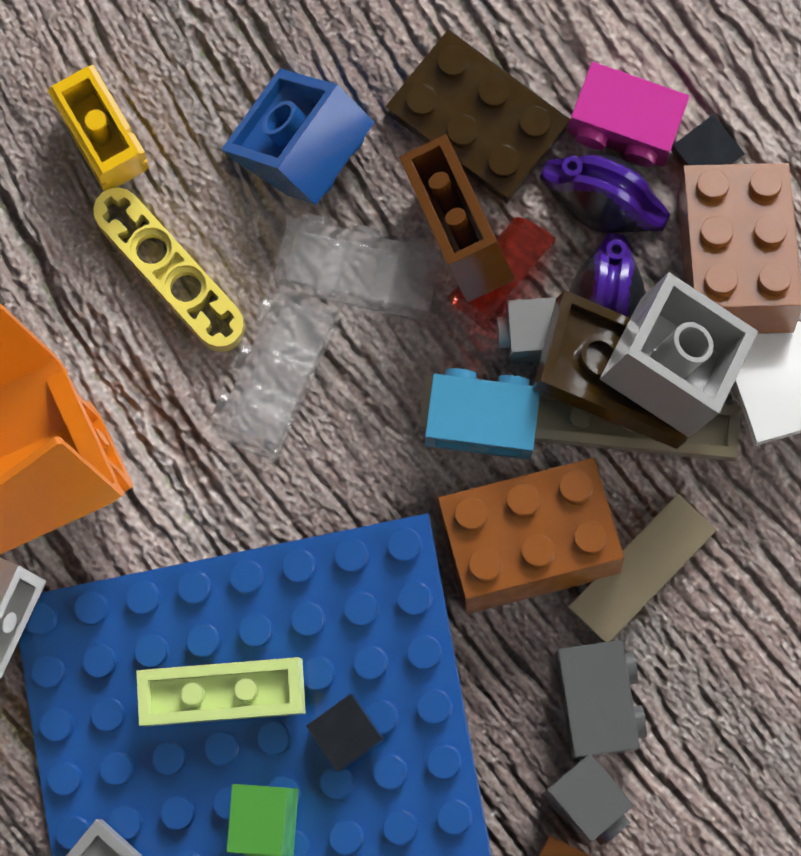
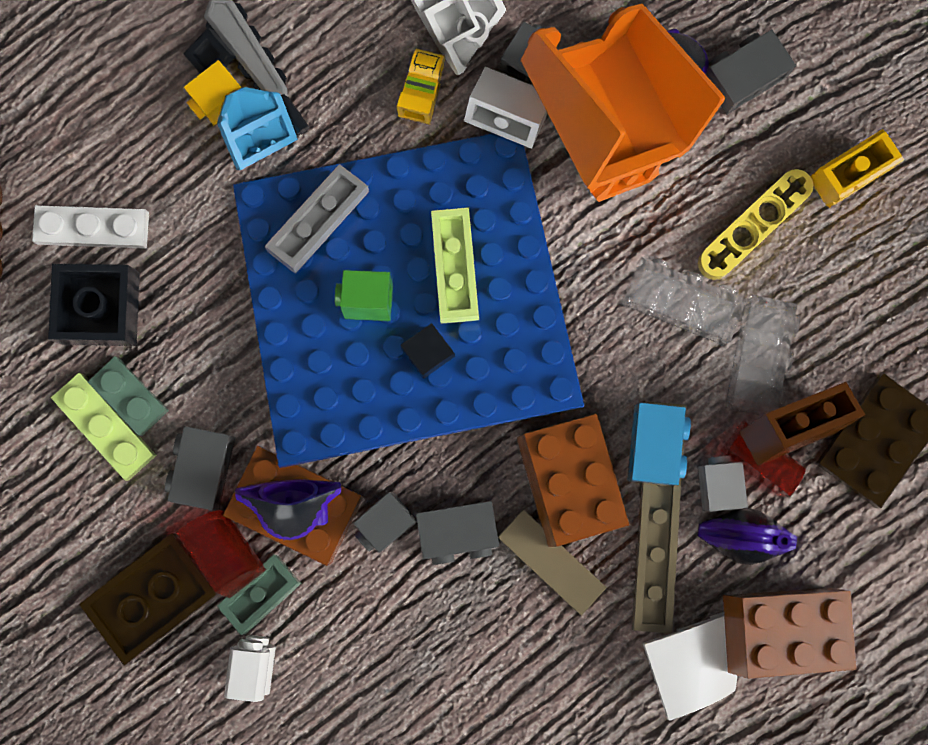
camera: 90 degrees right, 5 degrees up
(299, 135) = (858, 312): blue slope -> none
(574, 358) = (694, 543): dark brown plate -> none
(605, 193) = (826, 534): dark purple hat -> none
(627, 115) = (886, 549): dark pink brick -> none
(679, 355) = (706, 586): light grey brick -> none
(708, 146) = (866, 610): black tile -> none

